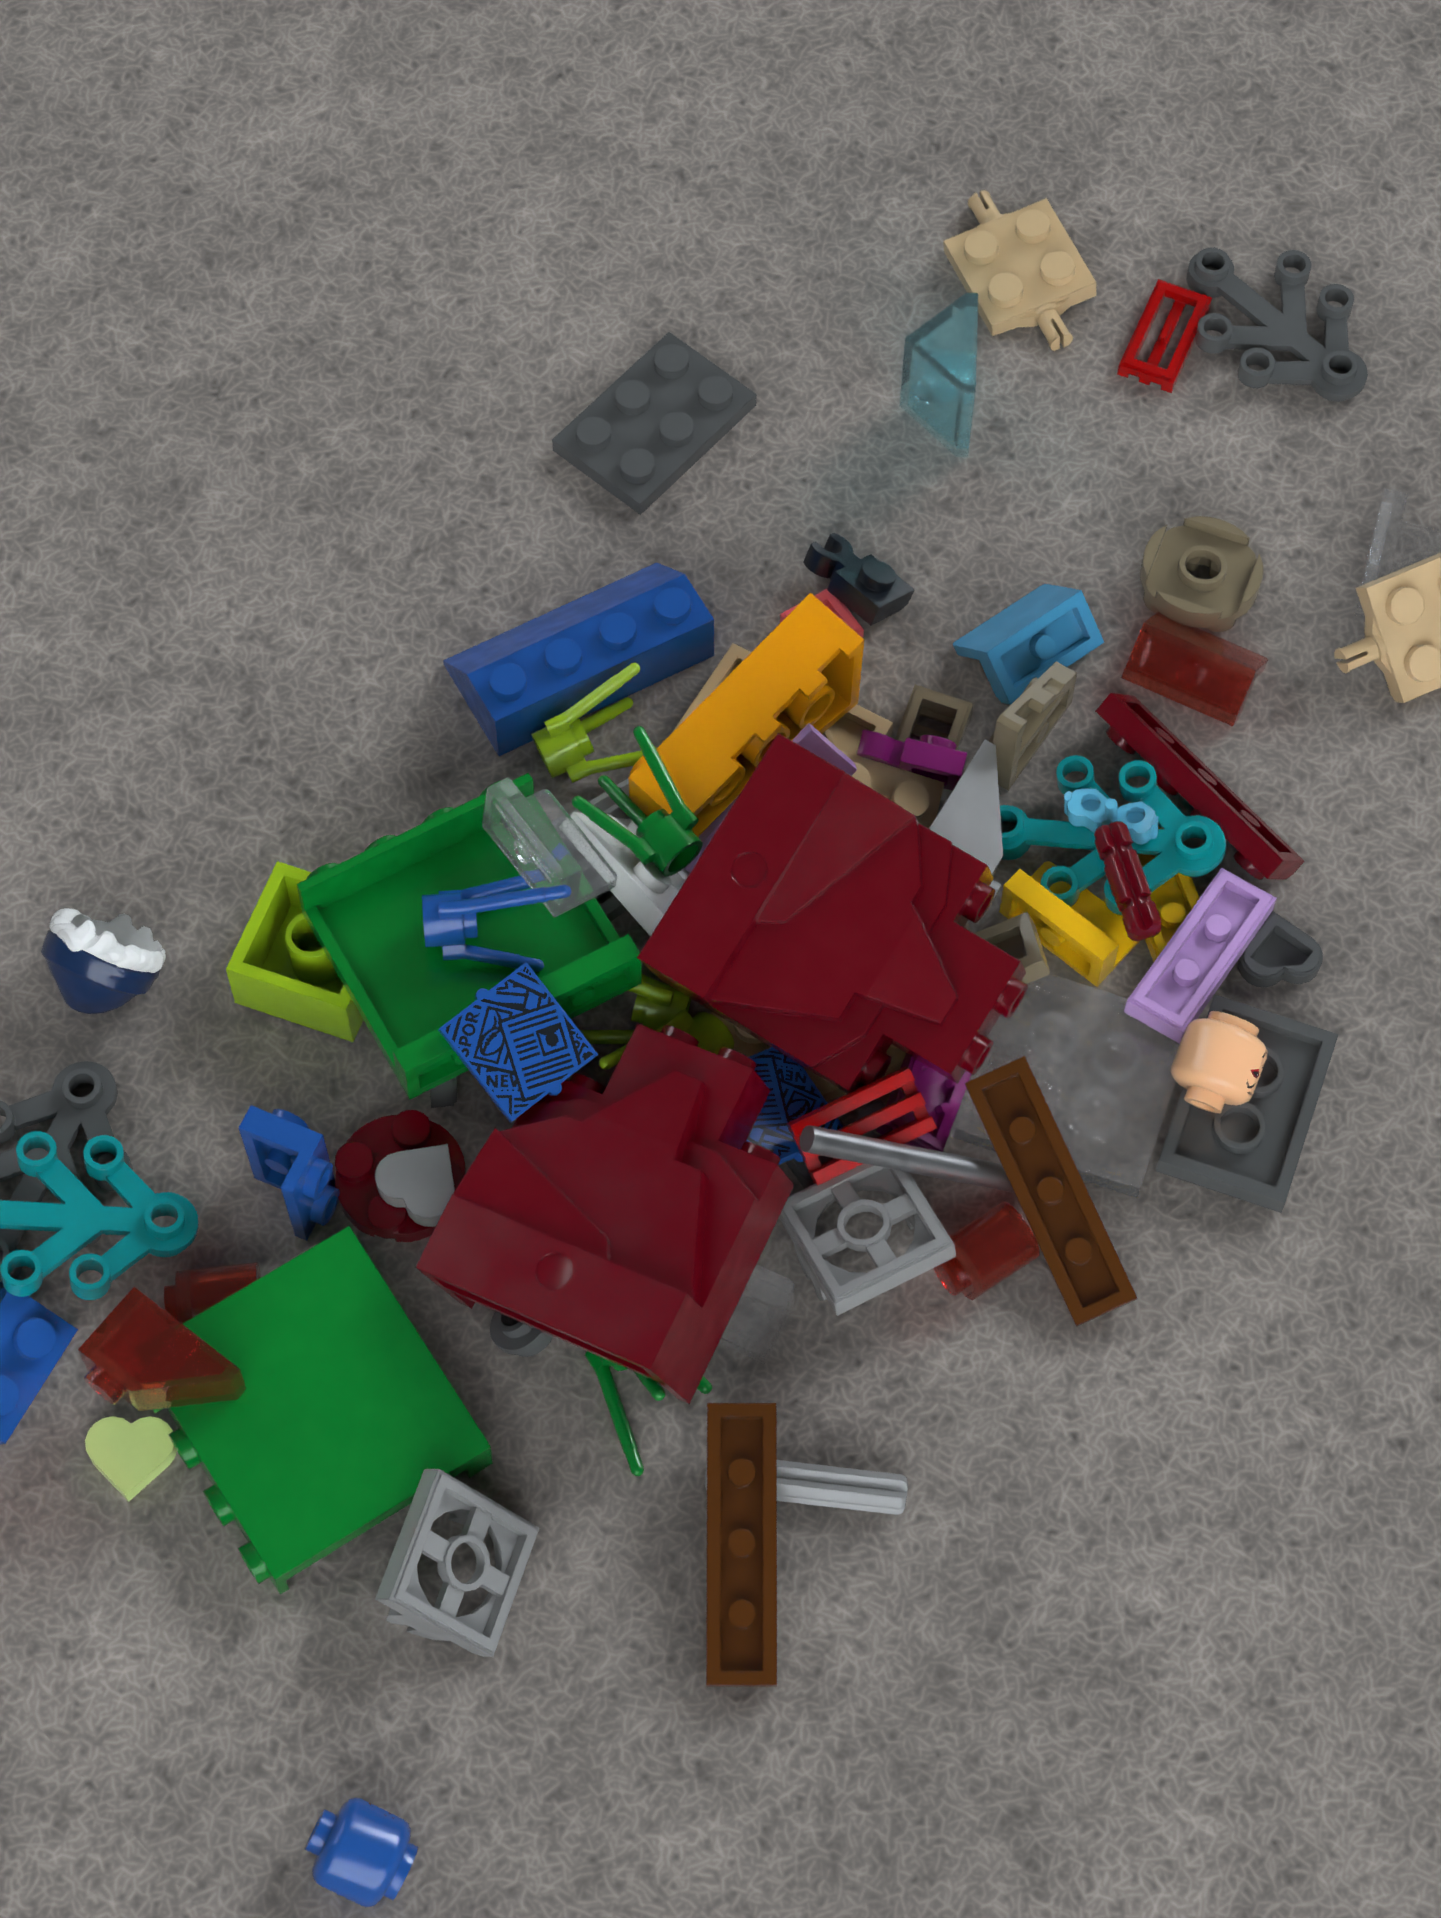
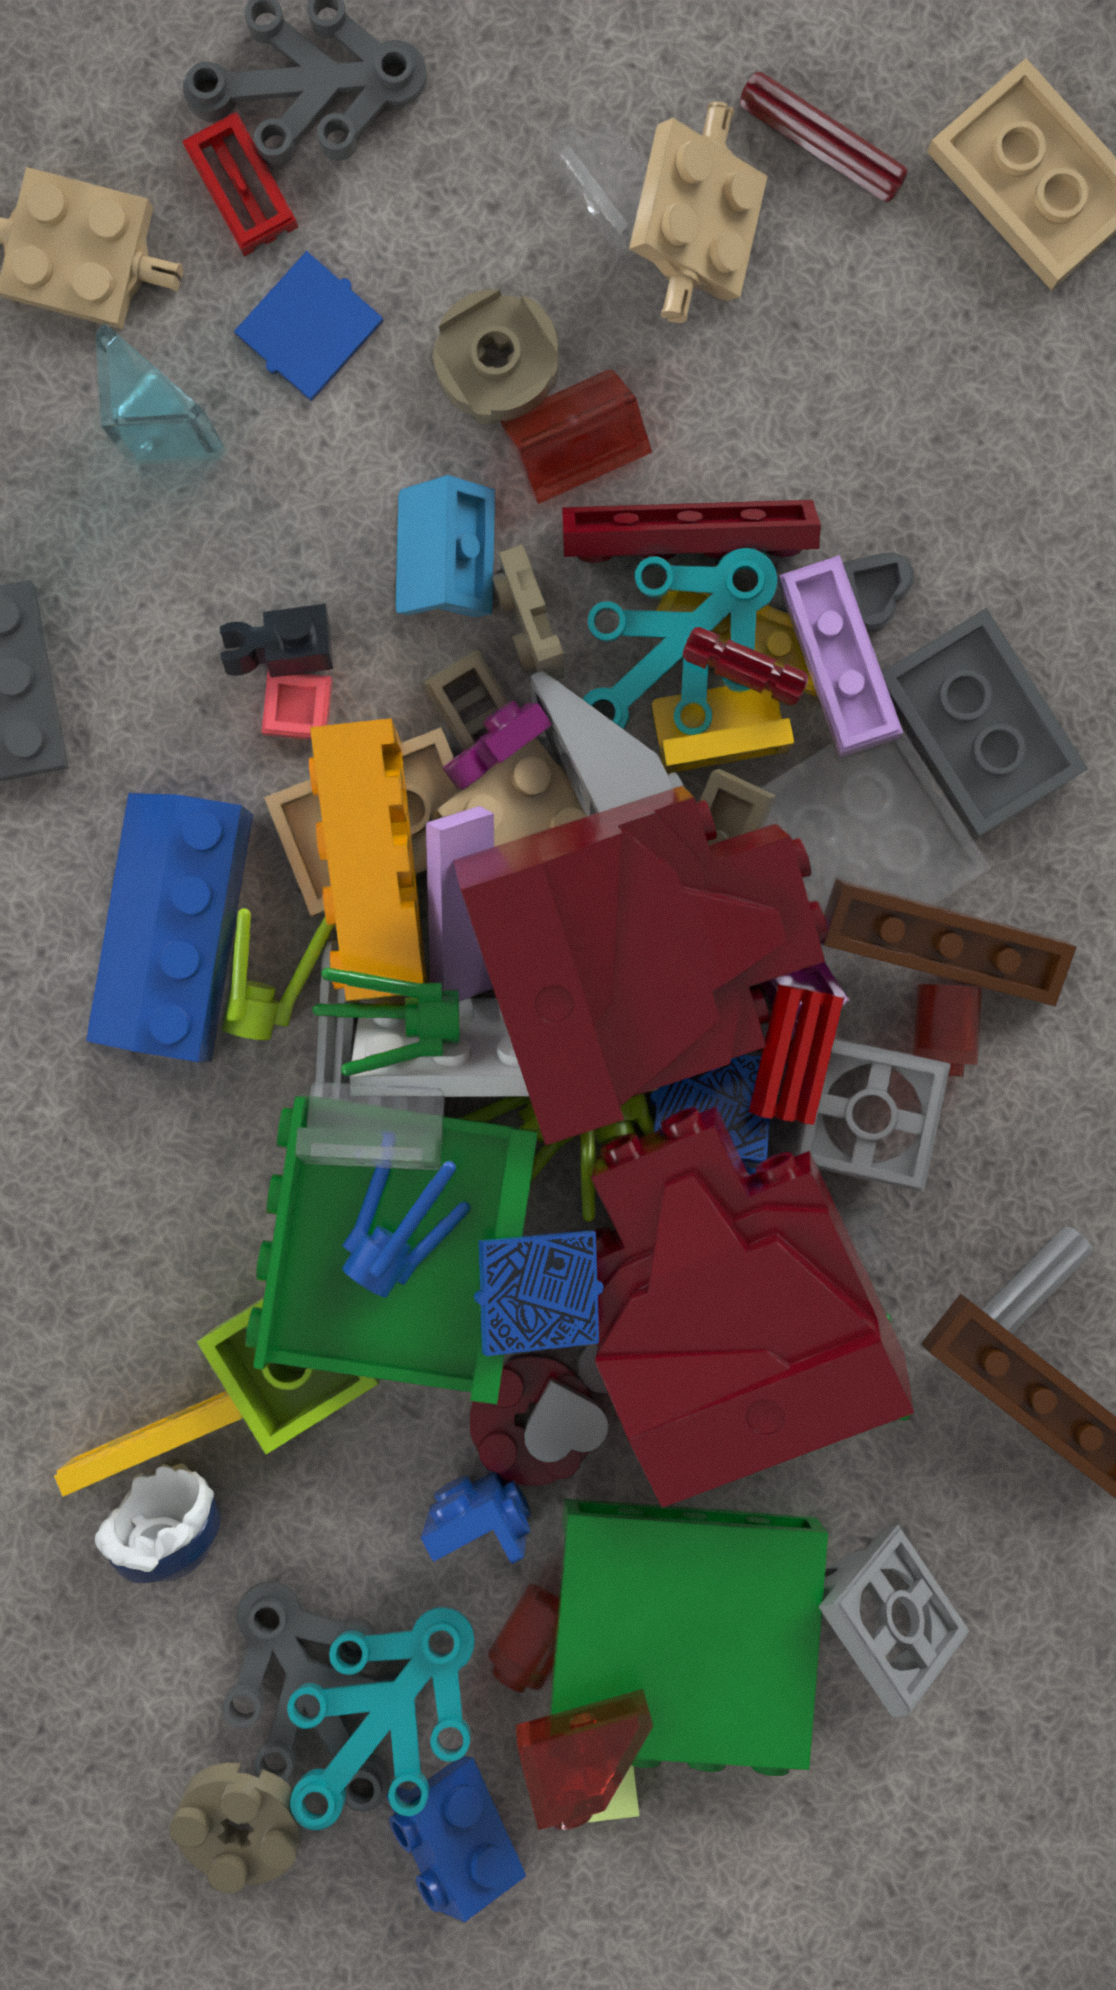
camera: 45 degrees left, 25 degrees up
(159, 903) = (146, 1443): none -> yellow tile
(361, 1852) = (1050, 1839): blue head -> none
(904, 1158) = (845, 1048): flat silver bar -> none
(1093, 809) = (656, 635): medium azure piece -> none
(1107, 446) = (308, 326): none -> blue piece
(1219, 1061) = (953, 727): light nougat head -> none

